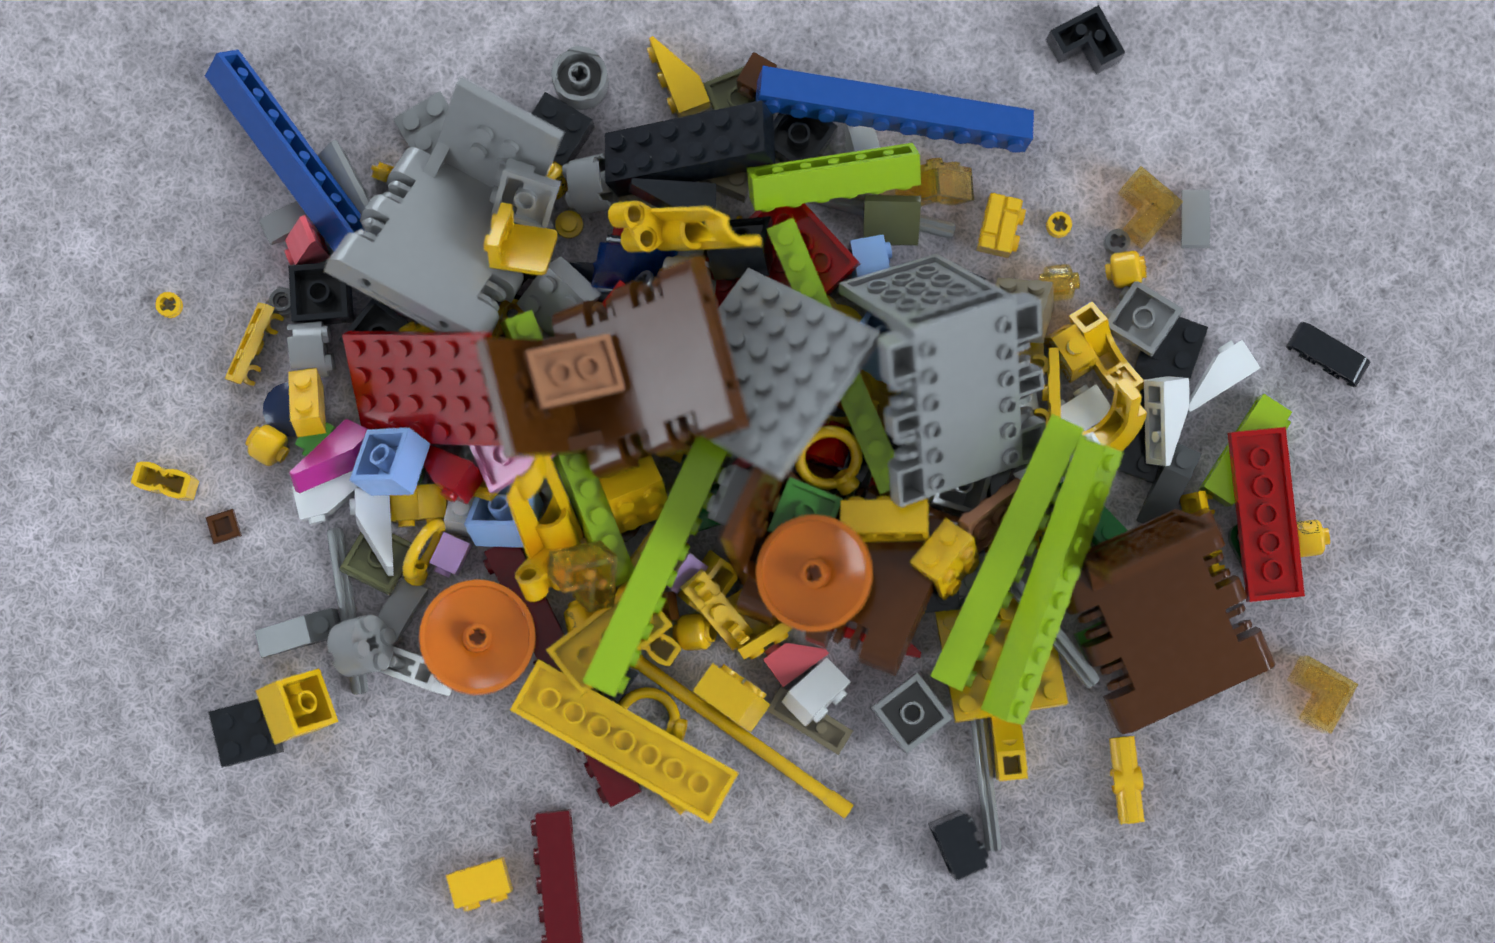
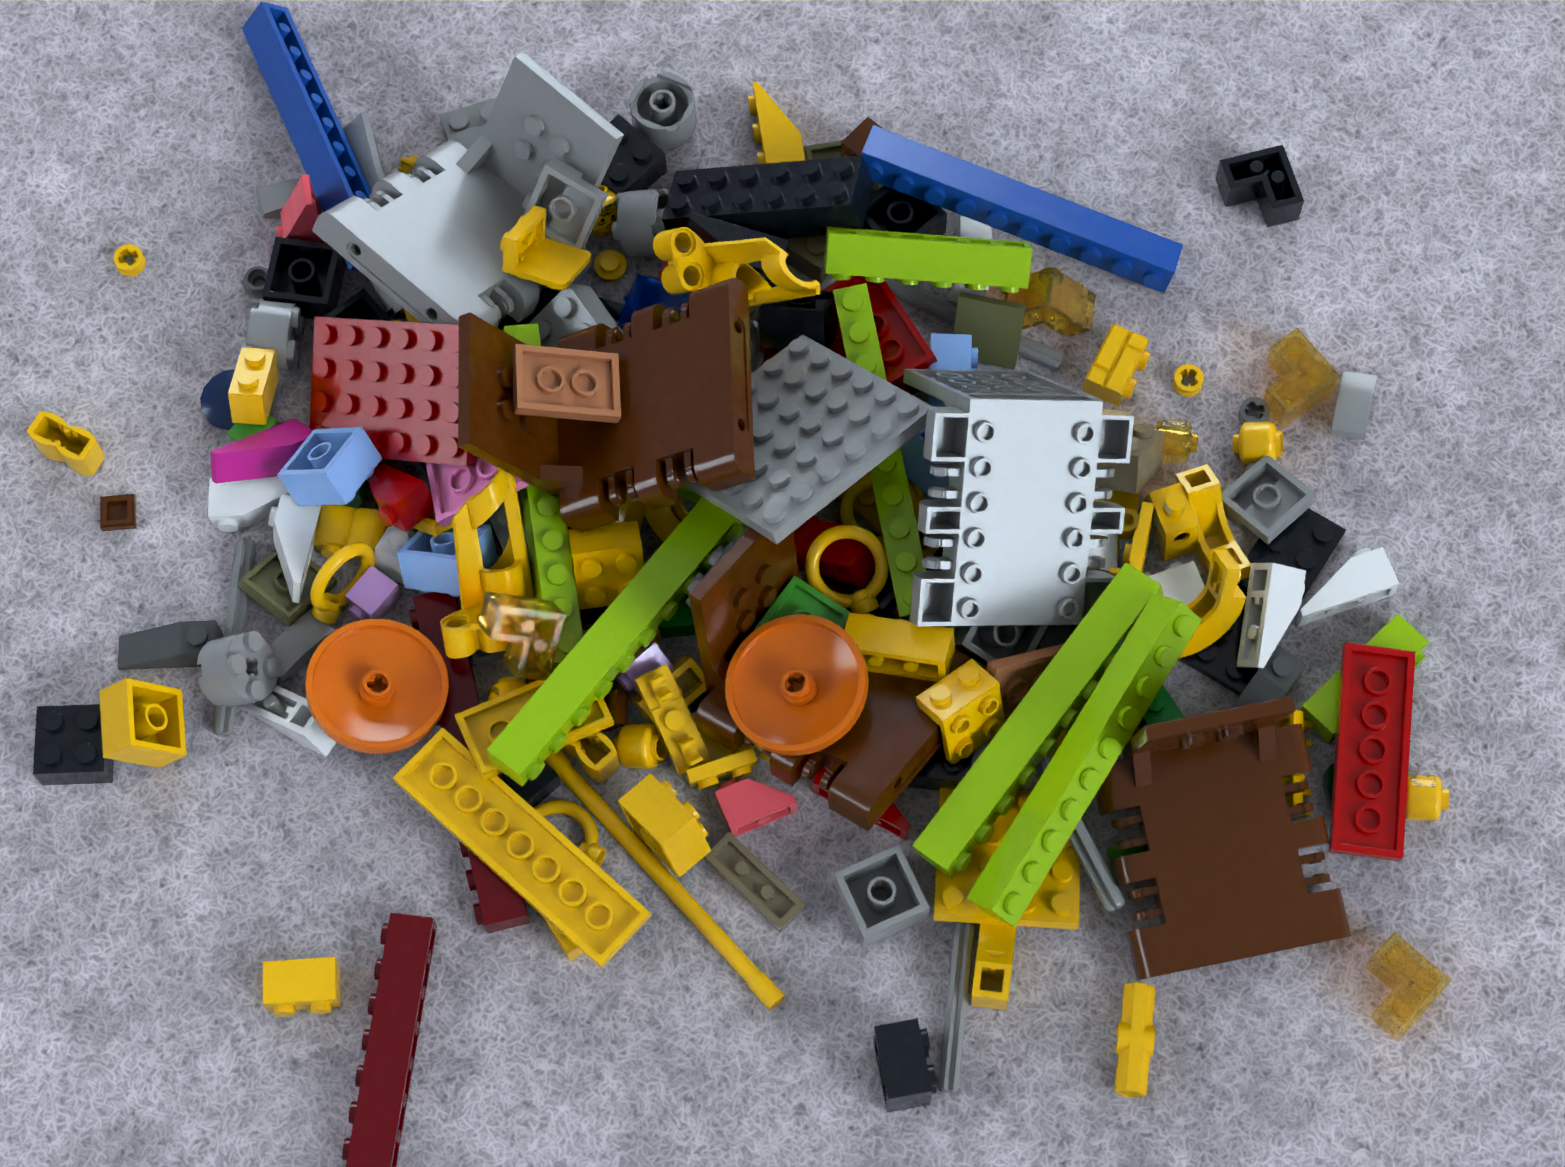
camera: 20 degrees right, 15 degrees down
(252, 344) = (211, 320): yellow plate -> none
(267, 445) = (195, 430): yellow head -> none
(816, 692) = (770, 845): white brick -> none
(1329, 353) = (1489, 588): black beam -> none

